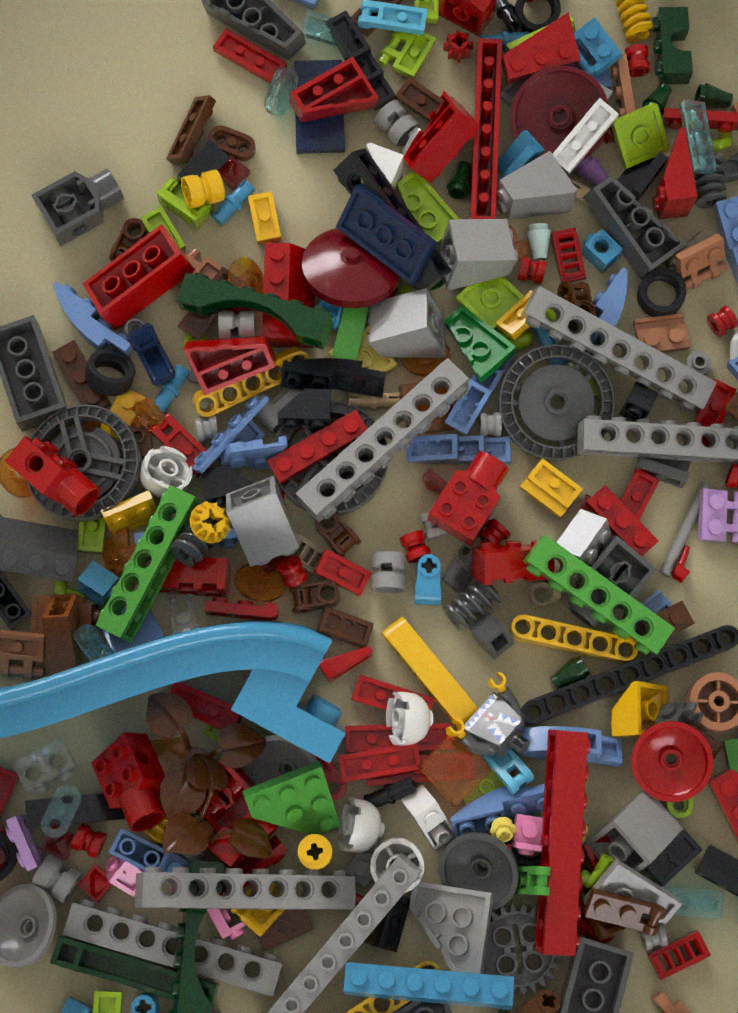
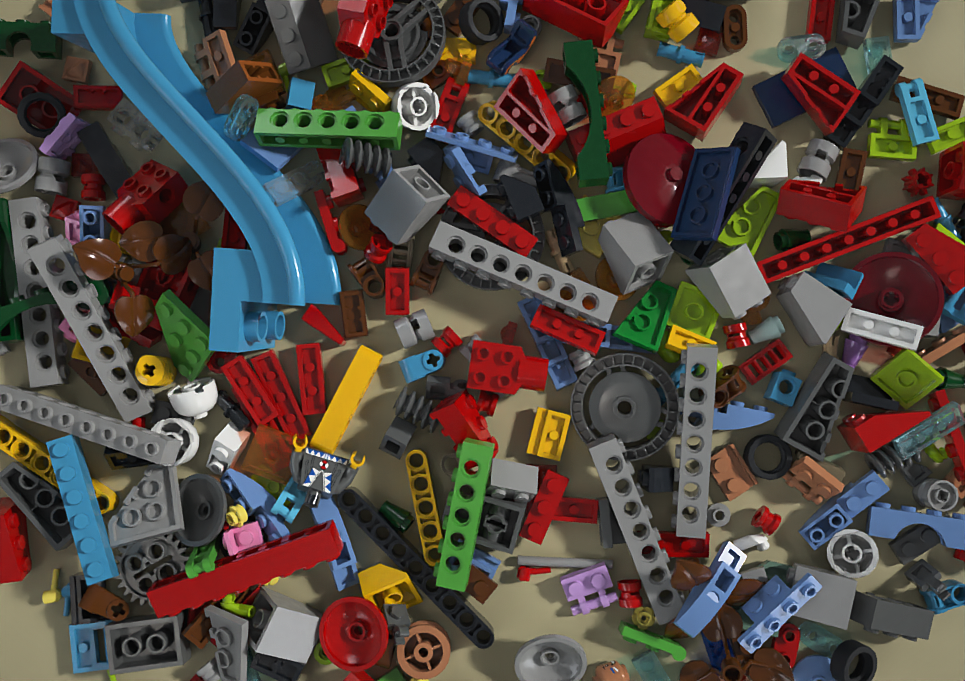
camera: 65 degrees right, 10 degrees up
(61, 811) = (99, 152): clear light blue plate -> none
(205, 531) = (367, 159): yellow gear -> none
(293, 201) = (705, 102): none -> red wedge
(408, 717) = (295, 399): white cylinder -> none
(457, 421) = (567, 329): none -> red plate
(623, 911) = (211, 644): plate -> none

